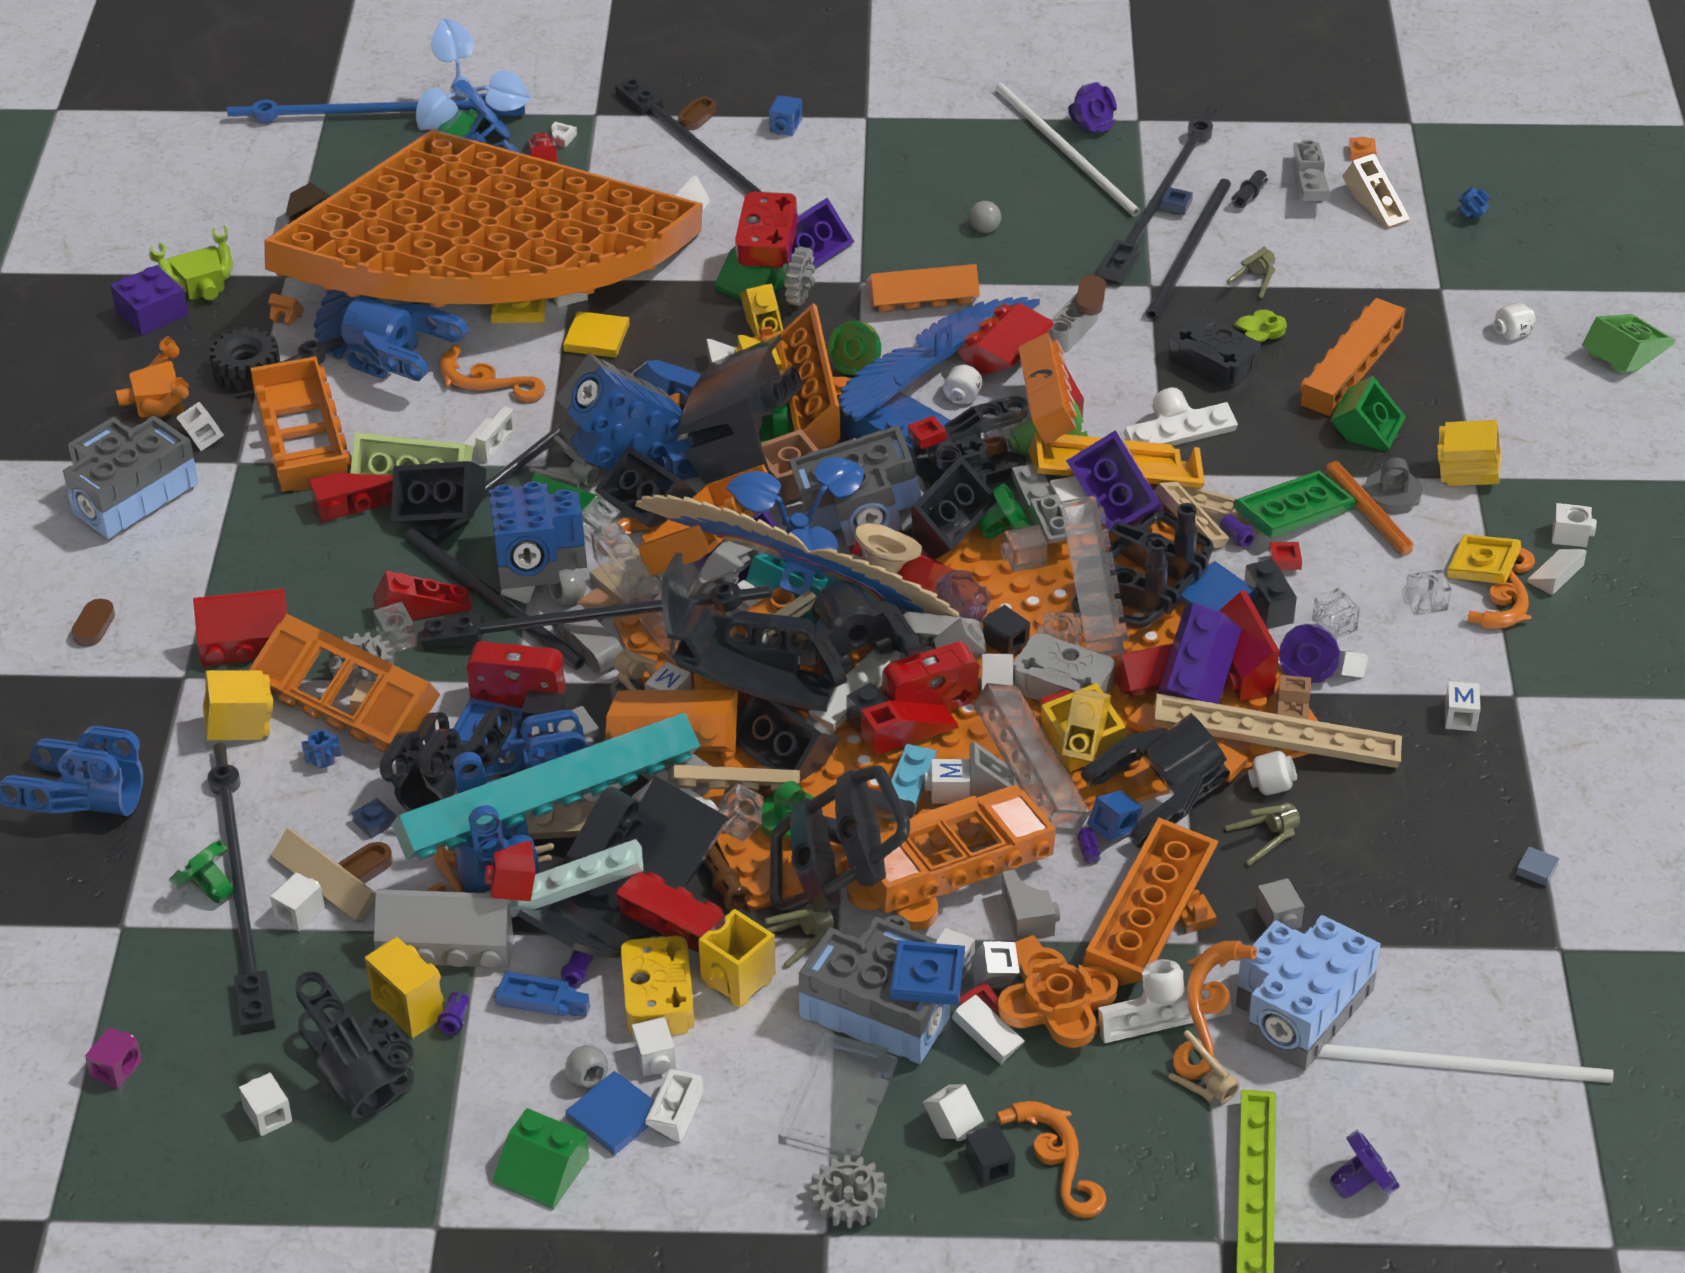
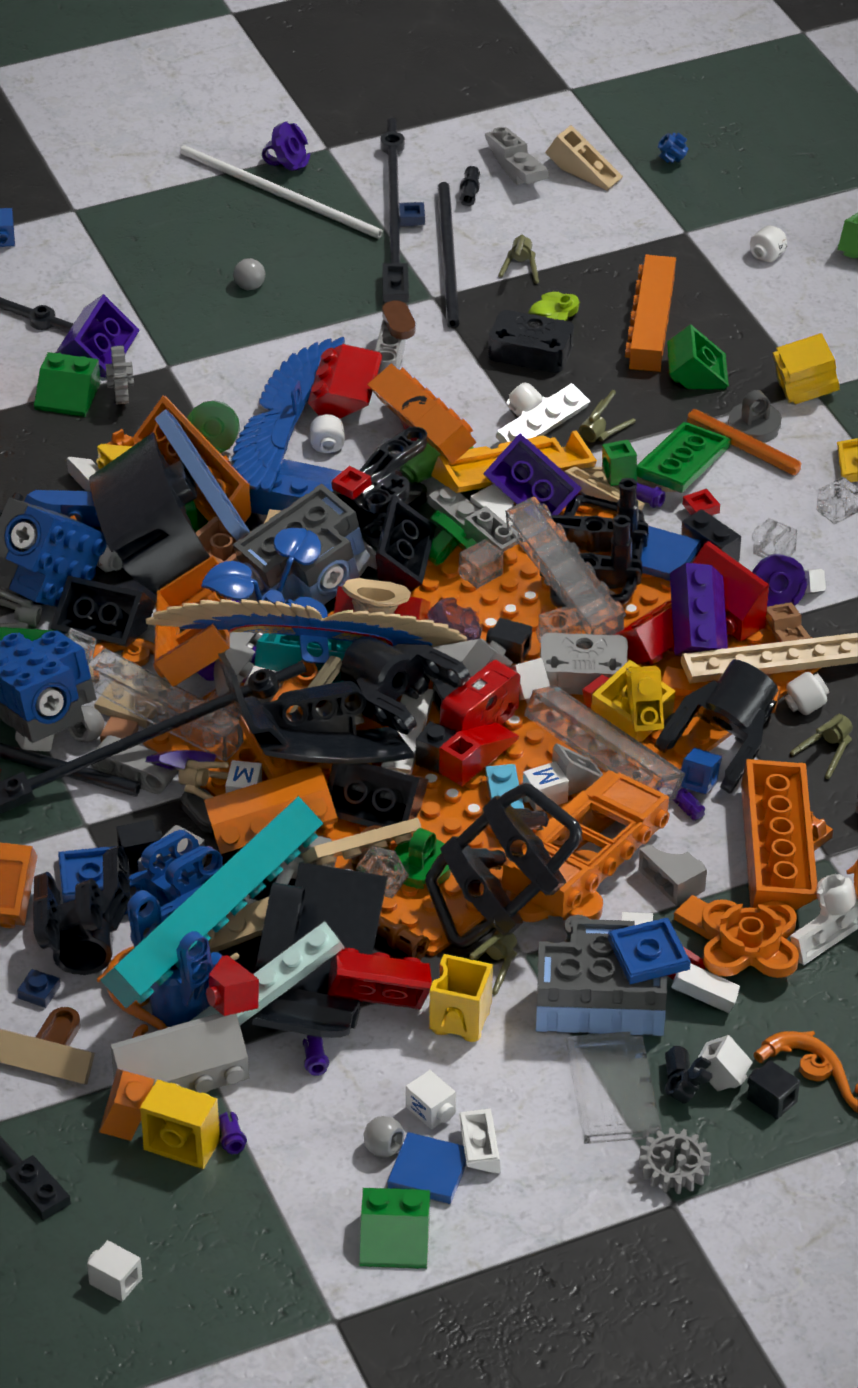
camera: 25 degrees left, 0 degrees up
(297, 901) = (22, 1085): white brick -> none
(351, 1057) = (189, 1201): black piece -> none
(368, 937) = (124, 1103): none -> orange slope
(508, 671) = (90, 815): red axle -> none
(541, 995) = (300, 1090): blue hinge -> none
(616, 644) = (177, 759): none -> dark purple slope
(658, 982) = (398, 1044): yellow axle -> none
(676, 460) = (112, 573): blue brick -> none
(761, 309) = (99, 417): yellow slope -> none
(766, 229) = (71, 338): red axle -> none
(802, 387) = (202, 475): none -> medium blue beam
(909, 1108) = (682, 1078): none -> black bar
(923, 286) = (234, 355): orange slope -> none
(995, 964) = (688, 925): light grey brick -> none
(1219, 490) = (619, 461): none -> green brick
(1227, 448) = (595, 425): none -> olive plant
(1361, 147) = (544, 123): orange plate -> none

